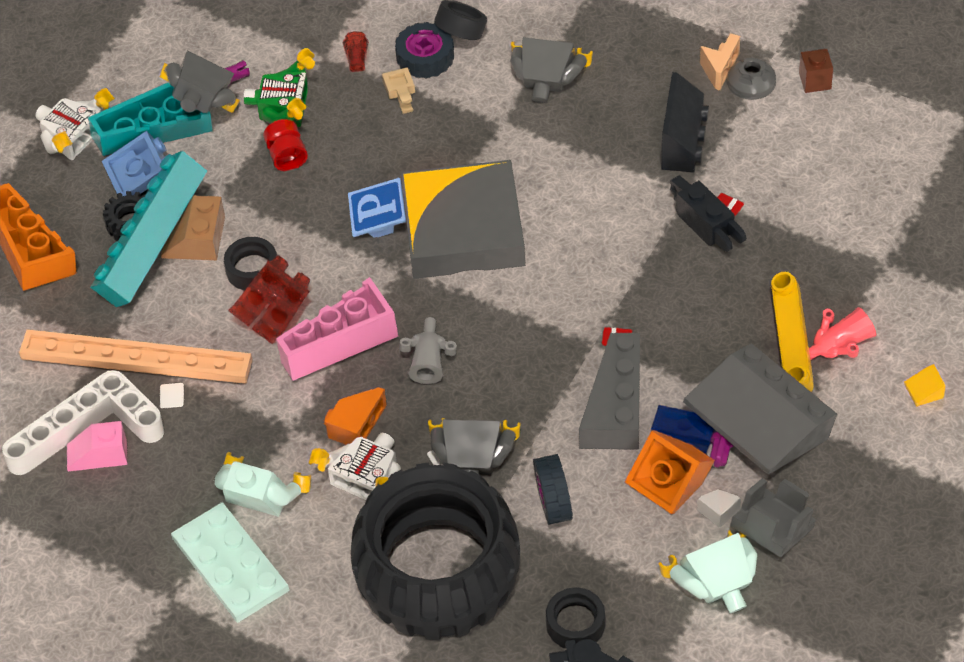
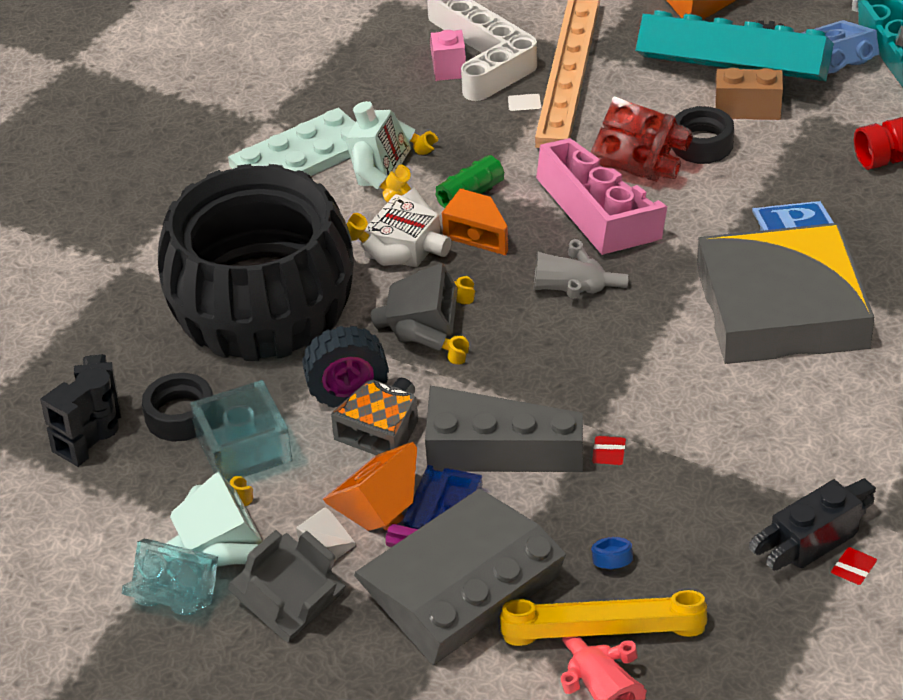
camera: 90 degrees right, 10 degrees down
(299, 425) = (476, 178): none -> green axle
(595, 473) = (377, 416): none -> dark grey torso
(618, 561) = (241, 431): none -> clear light blue brick
(728, 330) = (612, 553): none -> blue tile
(771, 596) = (172, 577): none -> clear light blue bracket

